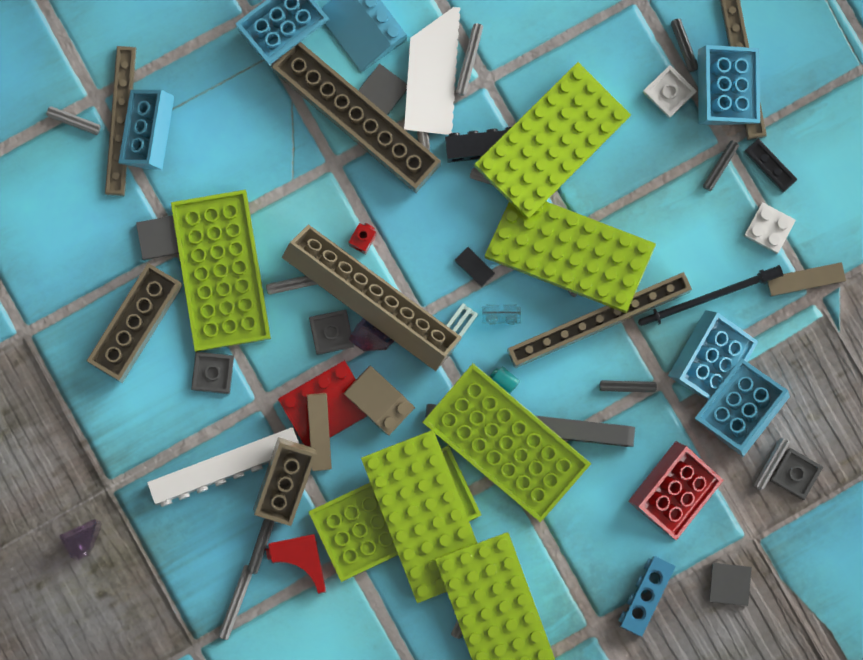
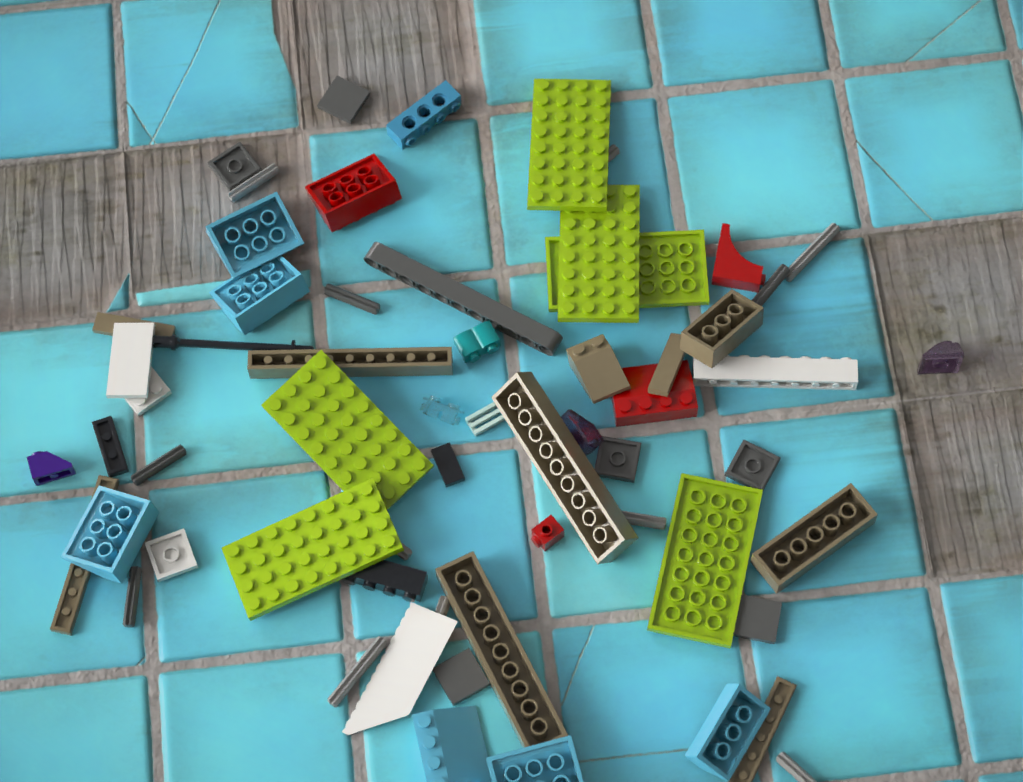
camera: 155 degrees left, 15 degrees down
(506, 442) = (492, 285): lime plate -> none
(791, 244) = (130, 360): none -> white tile
(812, 123) = (48, 467): none -> dark purple slope

